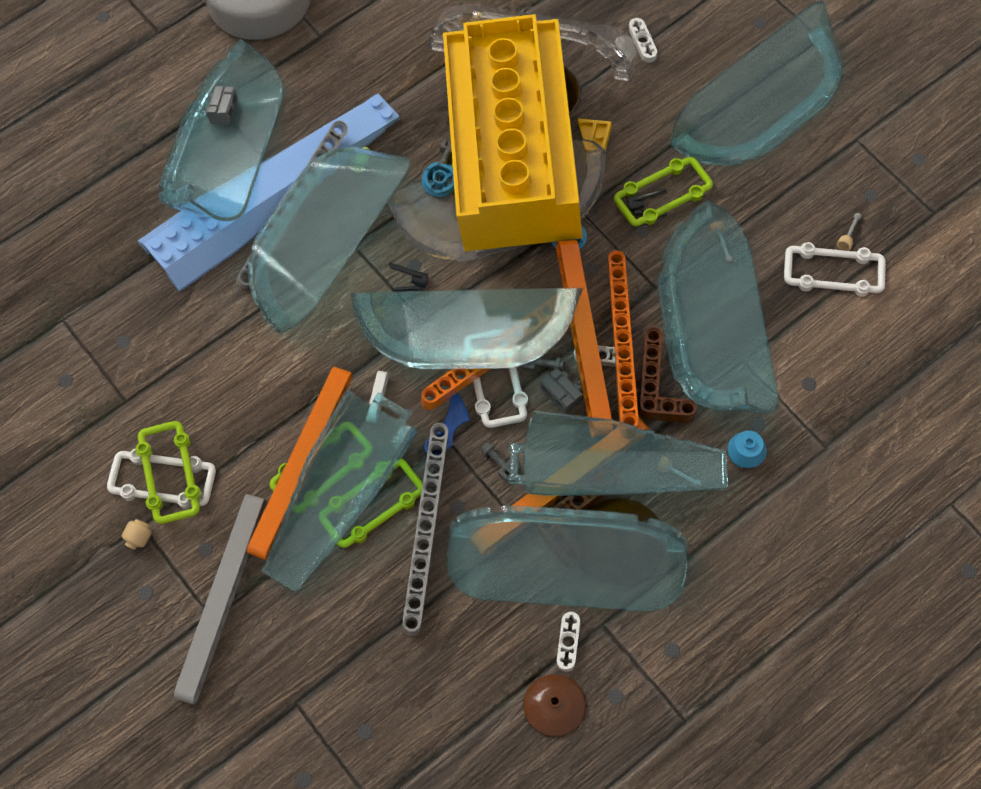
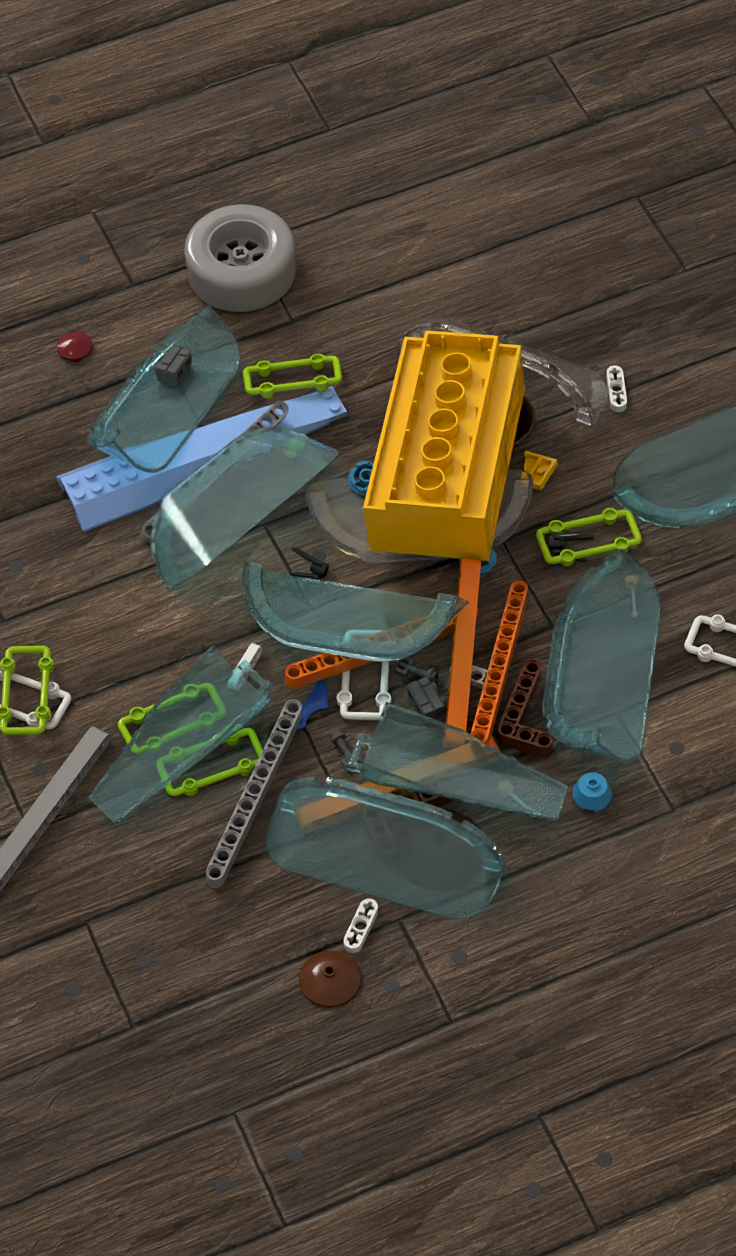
camera: 15 degrees right, 10 degrees down
(119, 105) = (74, 346): none -> dark red dish
(272, 518) = (111, 749): orange beam -> none
(319, 110) = (267, 389): none -> lime bar

